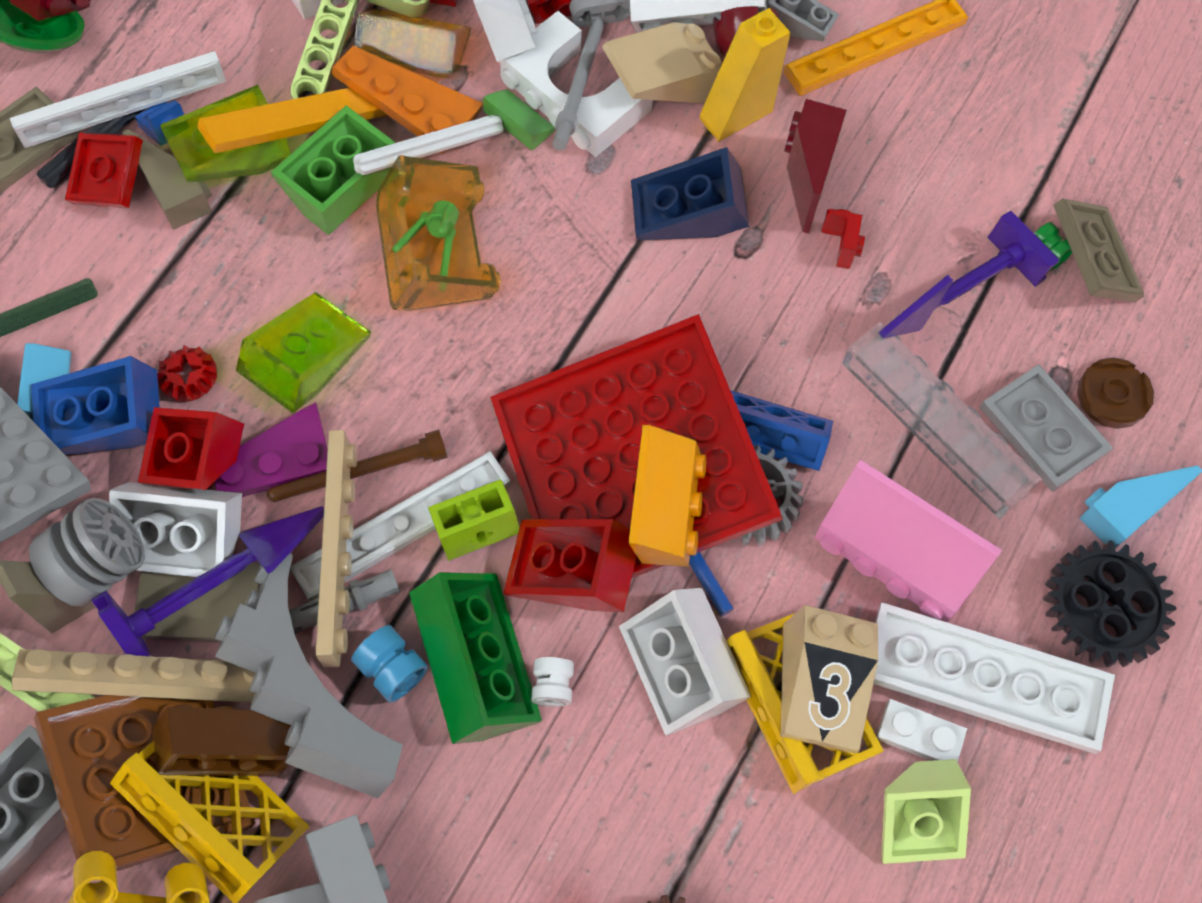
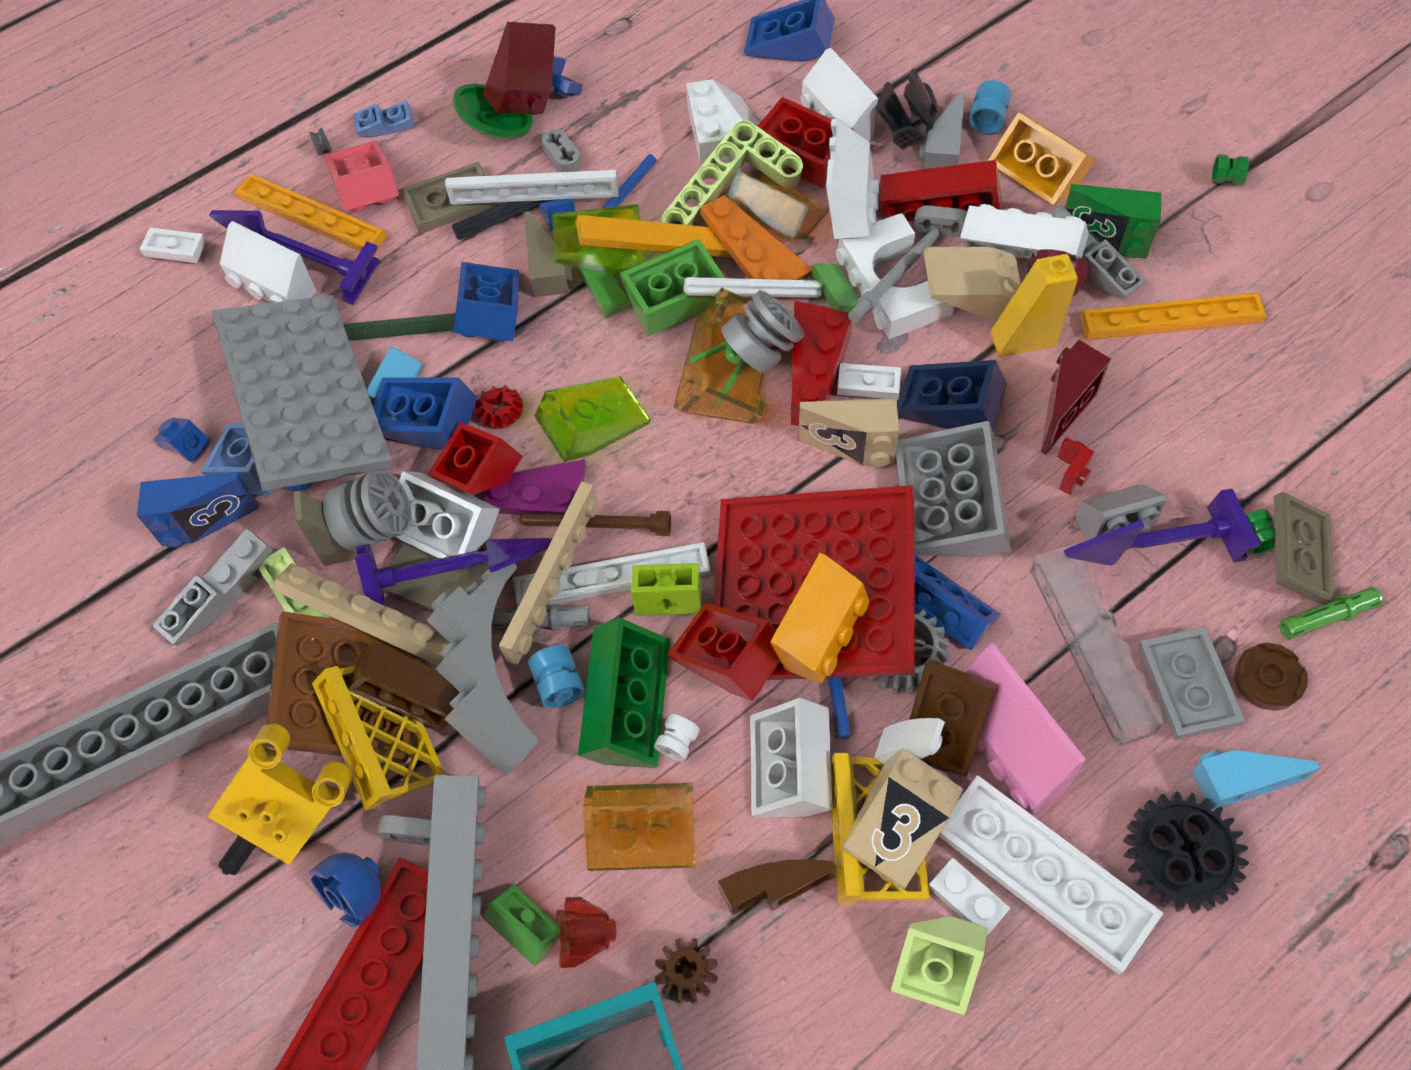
camera: 30 degrees right, 5 degrees down
(104, 170) = (500, 236): red tile -> none
(121, 253) = (487, 302): none -> blue slope
(136, 42) = (565, 149): none -> light grey beam
(232, 60) = (632, 181): none -> blue bar
(255, 198) = (605, 291): none -> bright green slope
(468, 187) = (762, 332): none -> light grey wheel
(528, 198) = (817, 354): none -> red wedge
(553, 795) = (639, 826): none -> clear yellow slope
(595, 211) = (869, 381): none -> white plate
(605, 272) = (852, 429): none -> tan slope
(720, 800) = (774, 881): none -> reddish brown slope
(739, 302) = (955, 491): none -> light grey slope
(811, 586) = (916, 736): none -> white slope
(834, 553) = (963, 706): none -> reddish brown tile
(911, 273) = (1119, 509): none -> light grey slope
(1155, 299) = (1344, 608): none -> bright green pin

